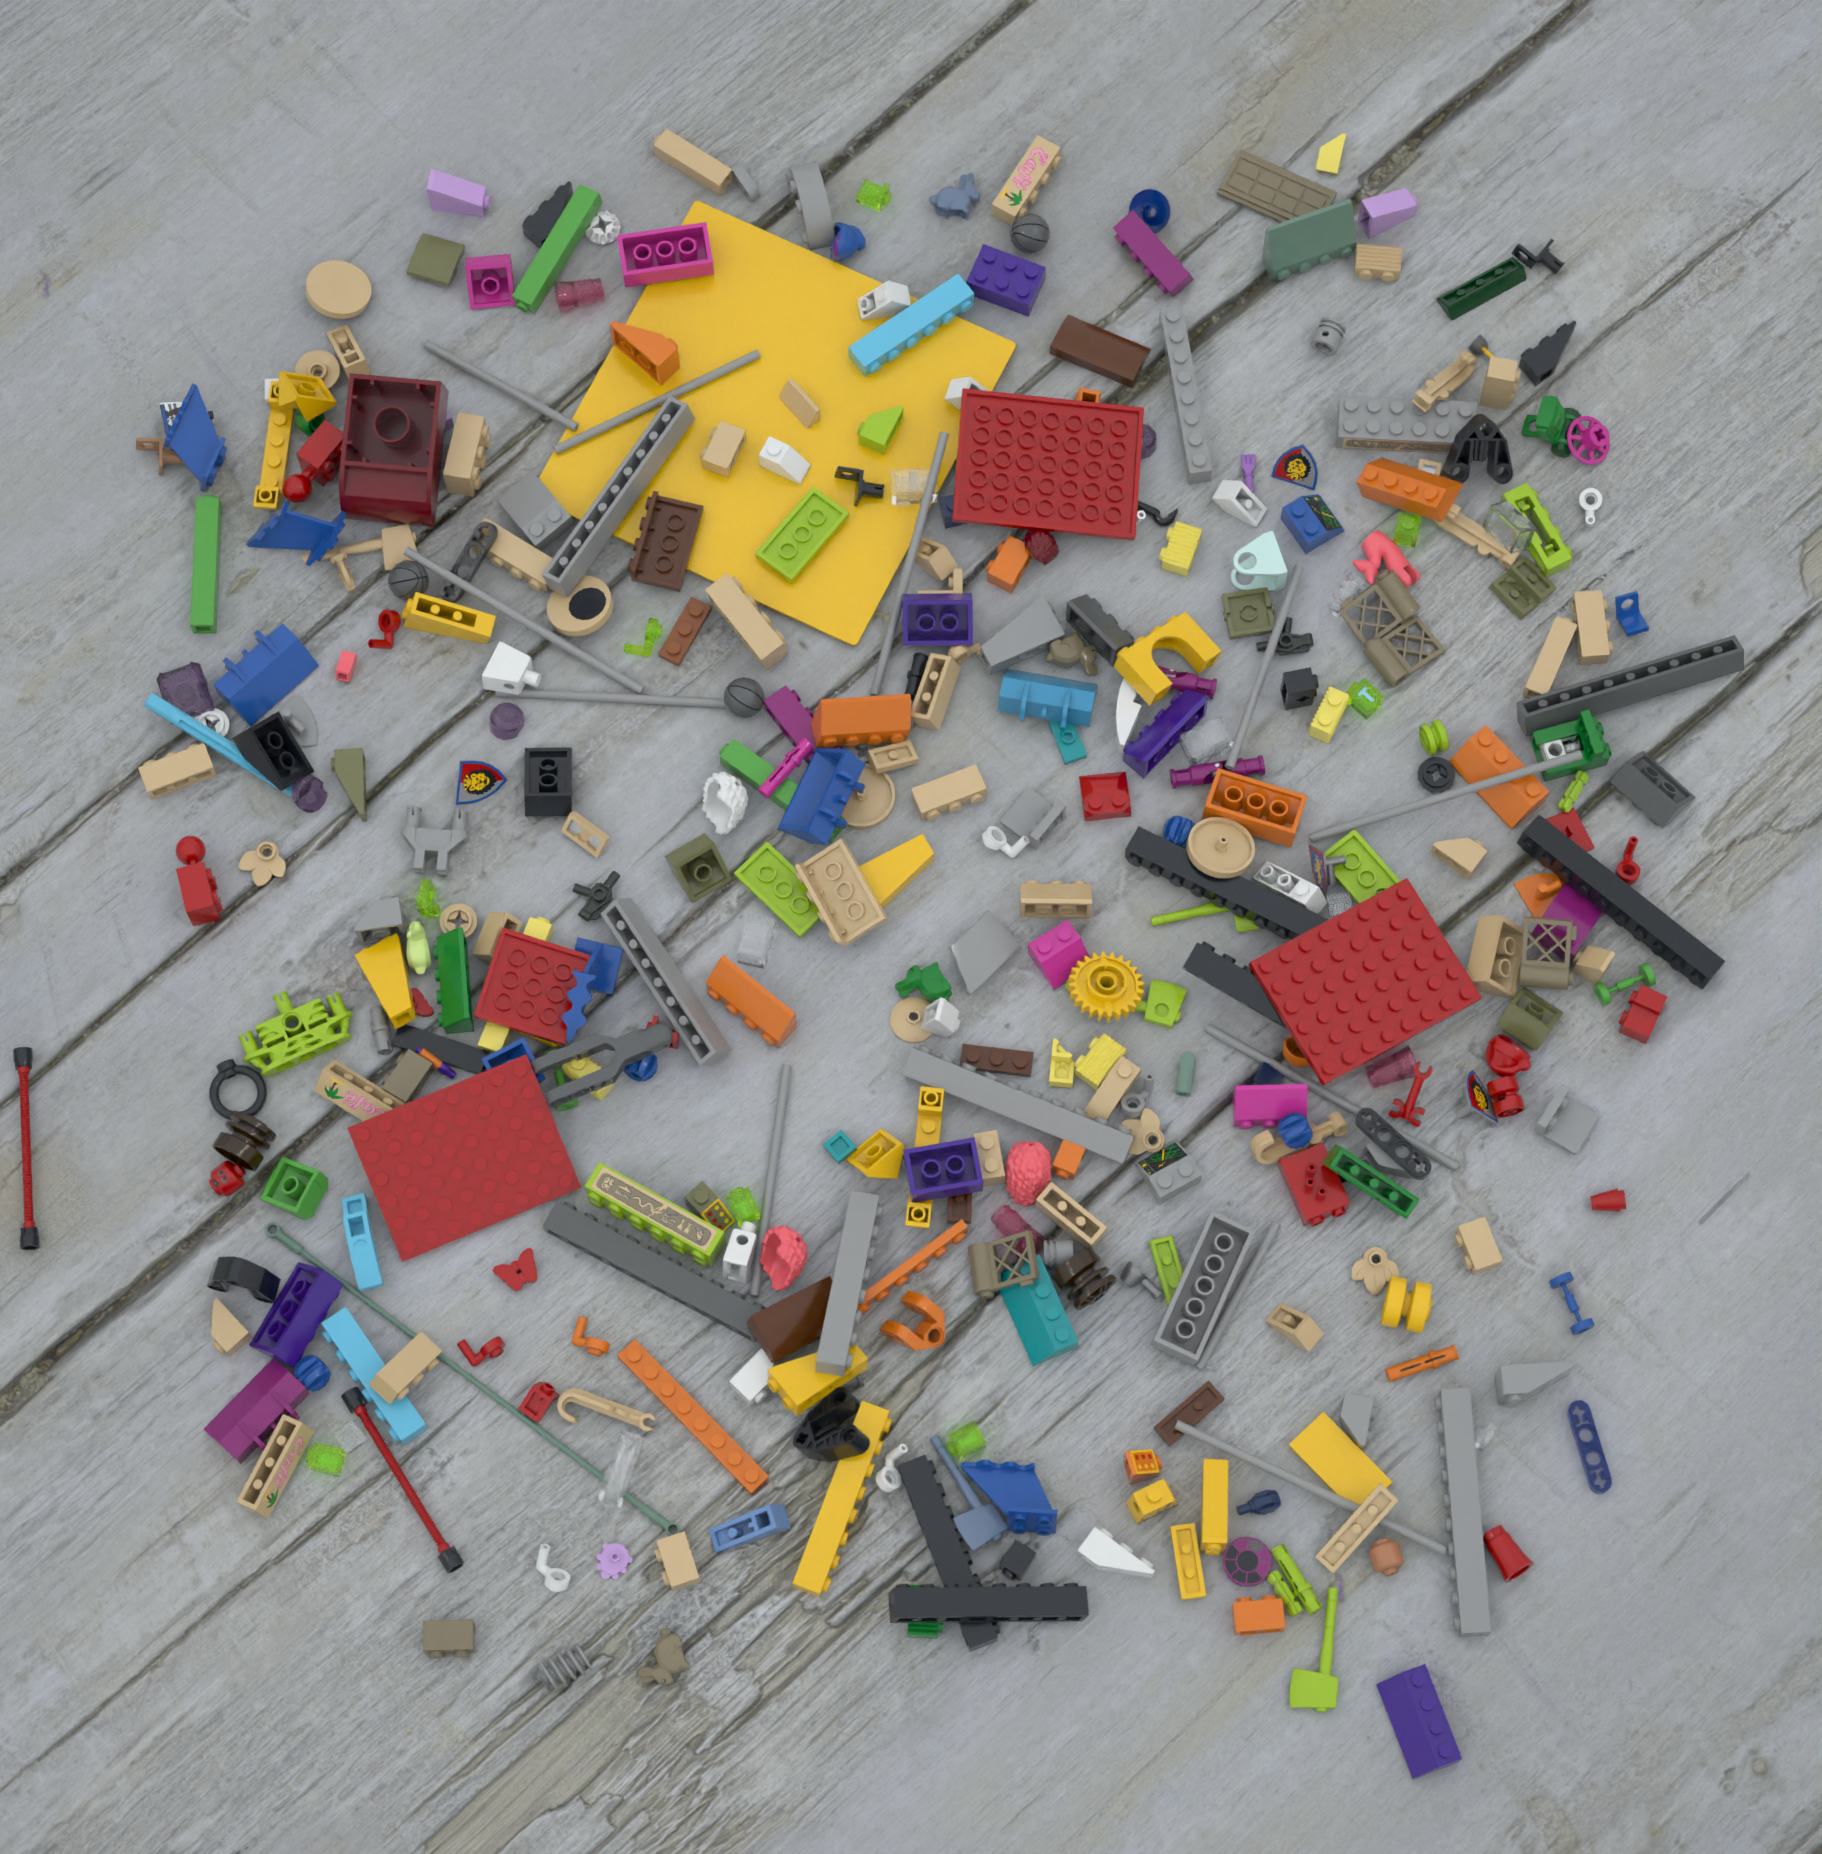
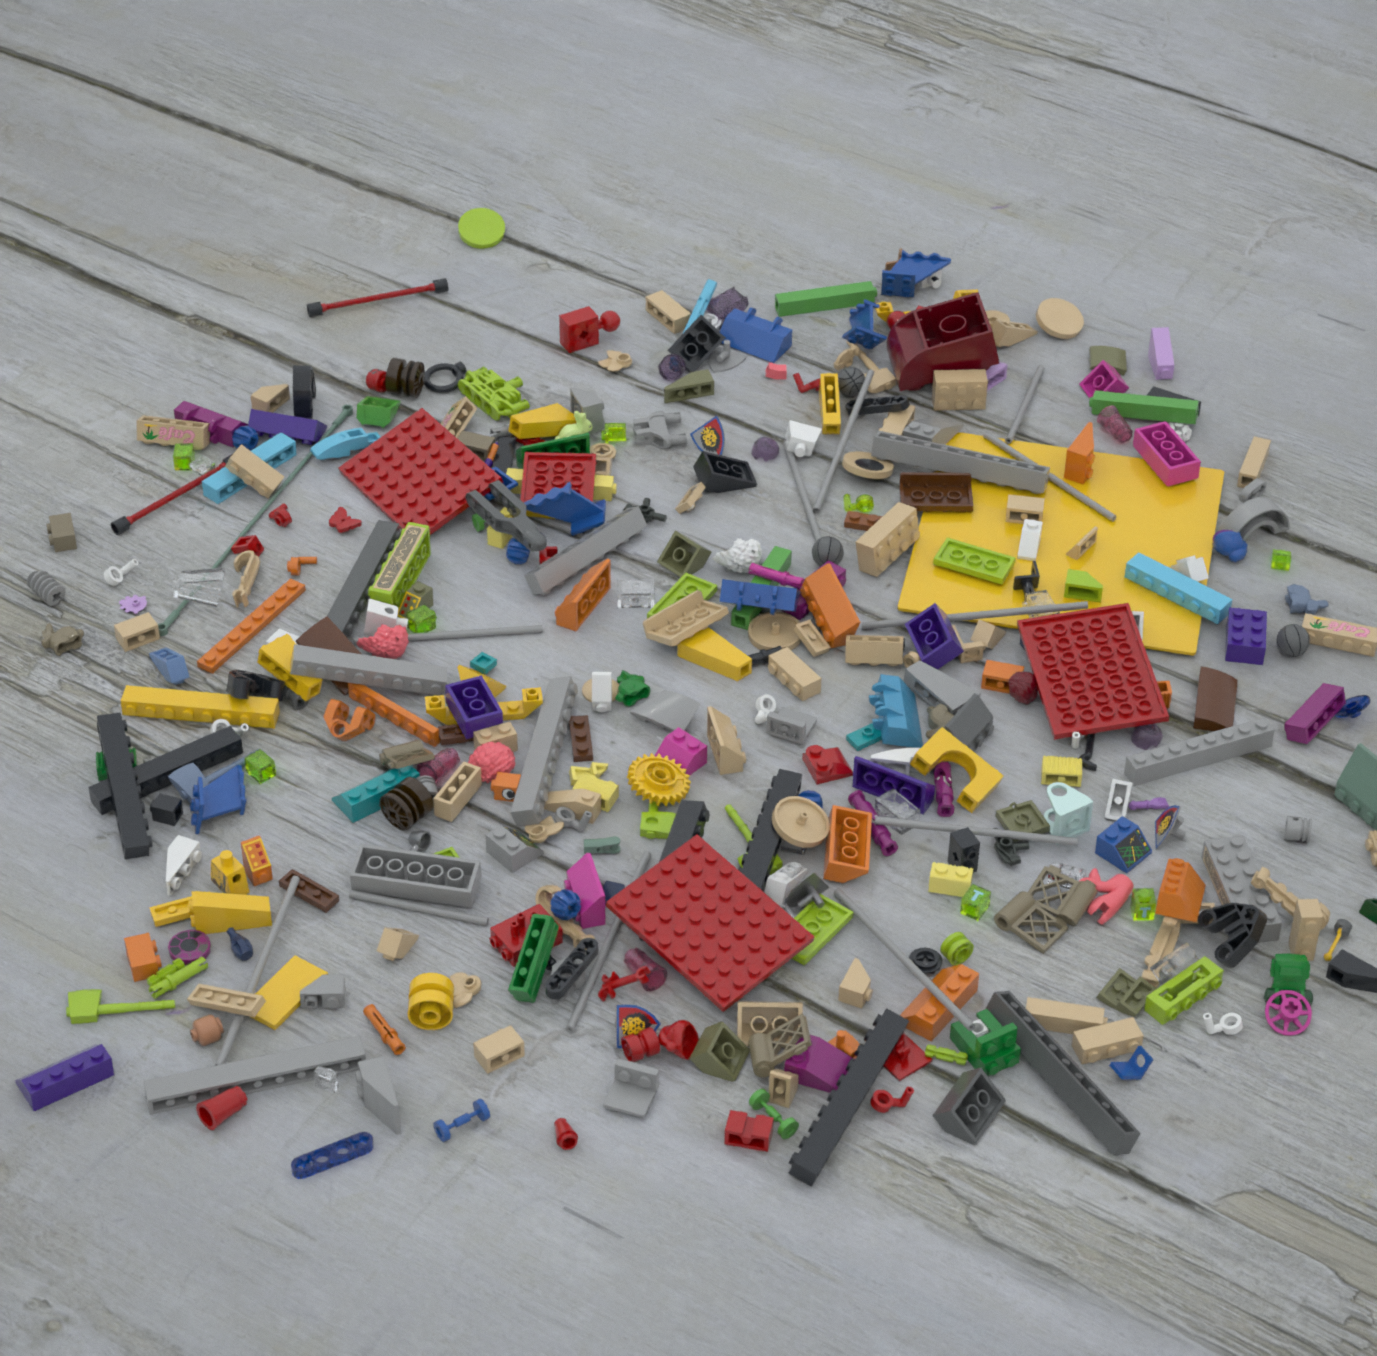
camera: 75 degrees right, 30 degrees down
(906, 818) = (763, 655): none -> black pin

